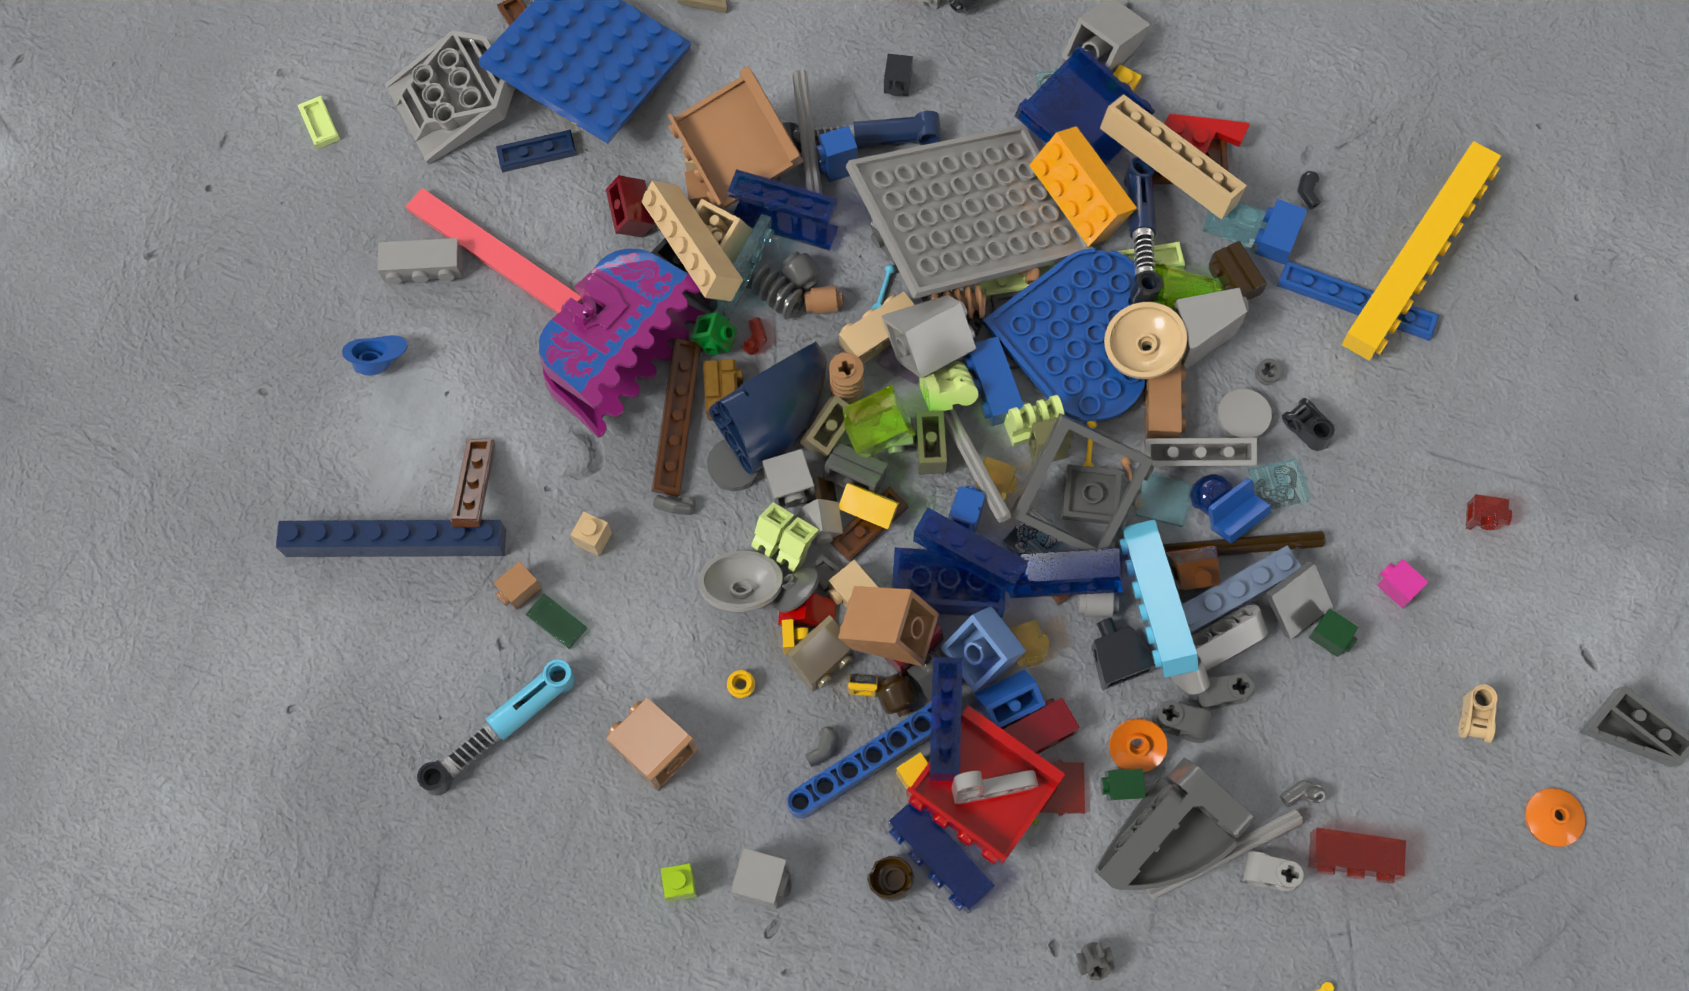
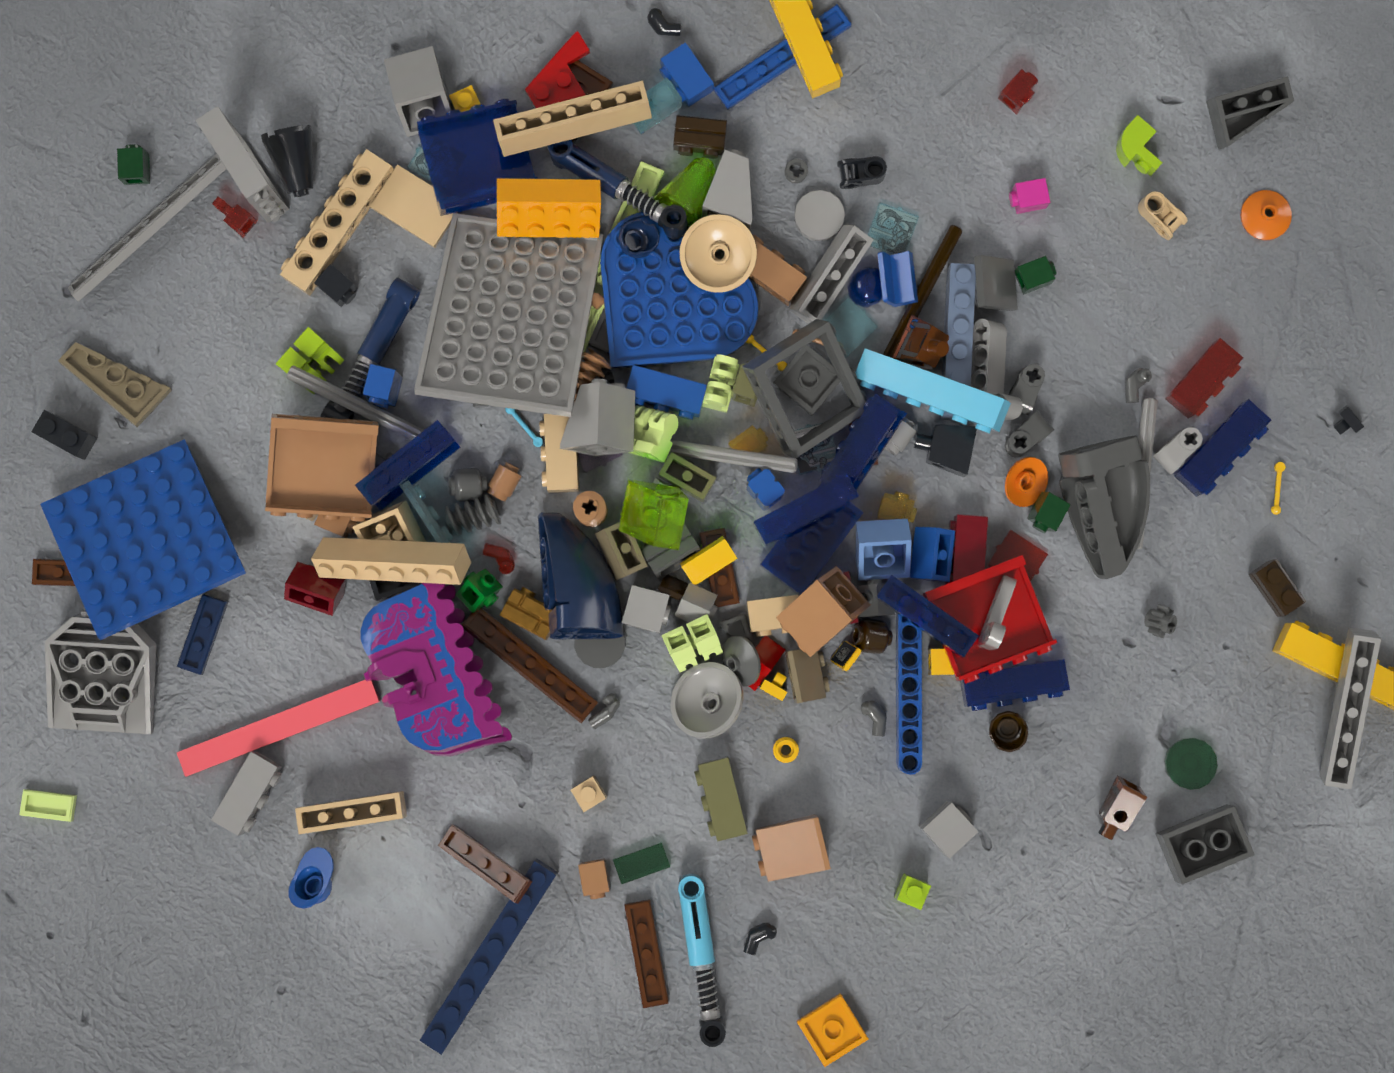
camera: 60 degrees left, 15 degrees up
(452, 348) = (351, 812): none -> tan brick
(474, 676) = (646, 953): none -> reddish brown tile
(500, 891) = (832, 1030): none -> light orange plate
(551, 765) = (757, 934): none -> black arm
(658, 653) = (721, 799): none -> olive brick
(831, 88) = (311, 349): none -> lime legs
(963, 51) = (336, 236): none -> tan brick
(1003, 90) = (412, 206): none -> tan tile
(1109, 269) = (638, 238): none -> dark blue hair
(1304, 915) = (1222, 448): none -> clear blue brick
(1520, 646) = (1131, 146): none -> lime brick

